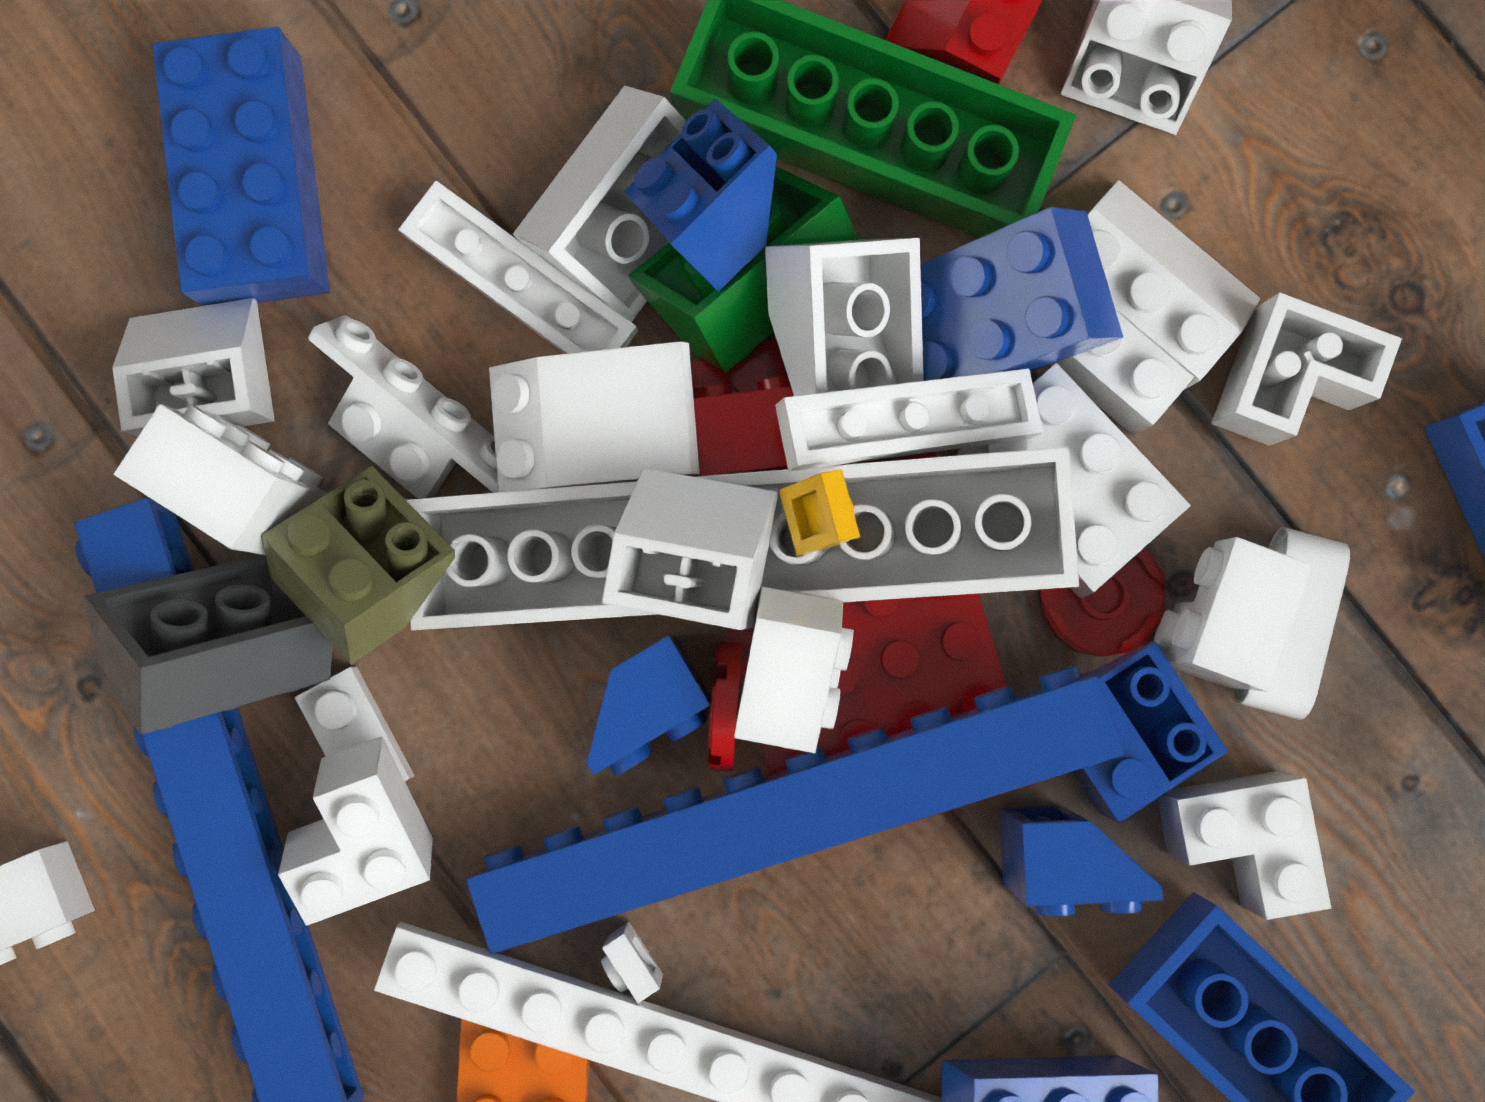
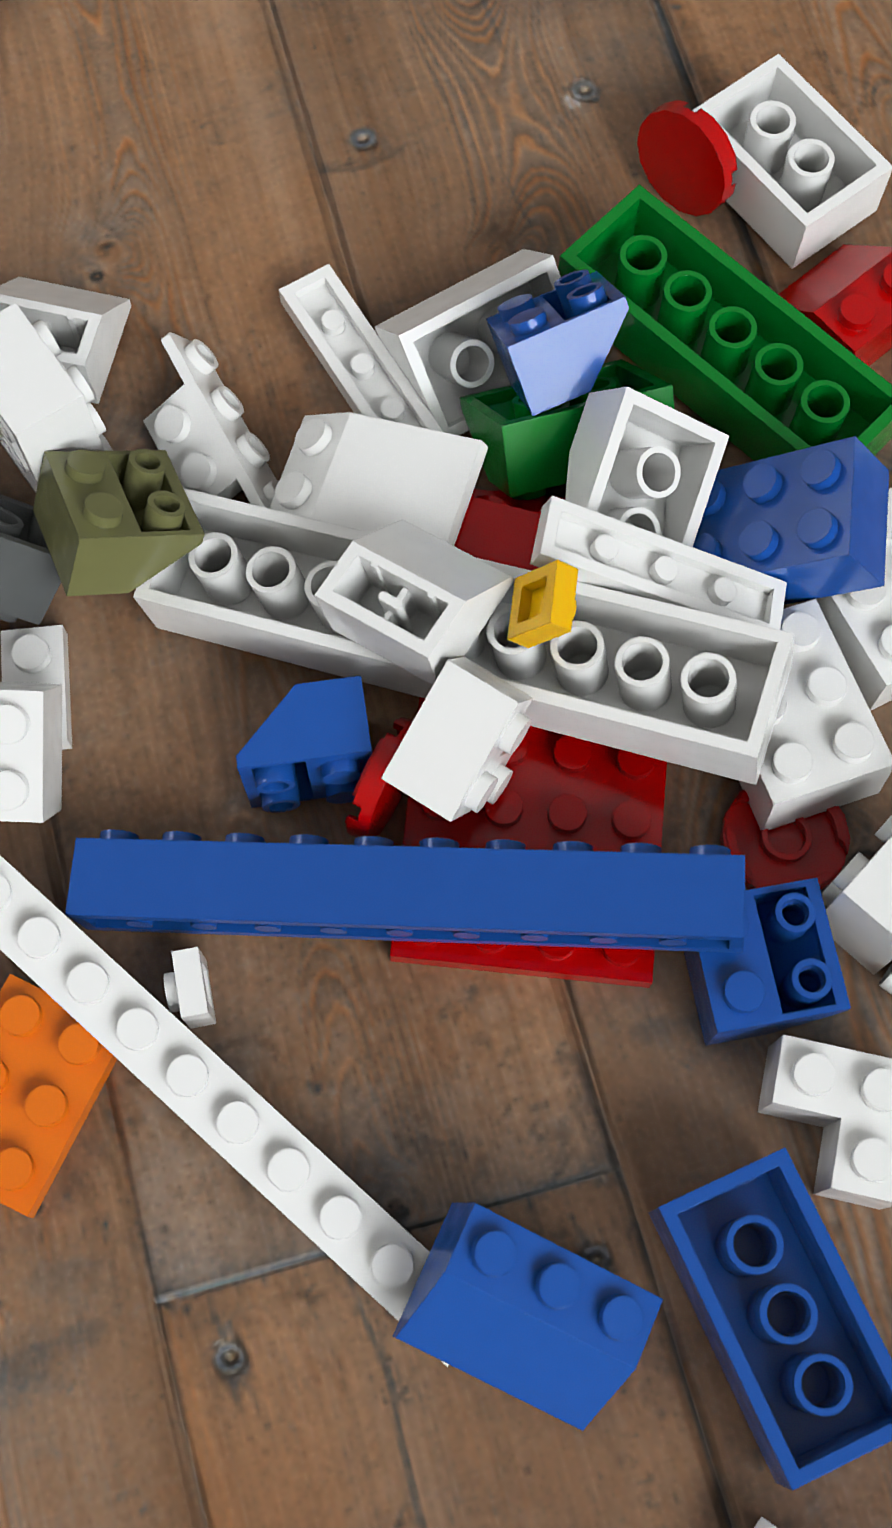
camera: 20 degrees right, 15 degrees down
(240, 167) = (170, 197): blue brick -> none
(1065, 860) = (659, 1050): blue slope -> none

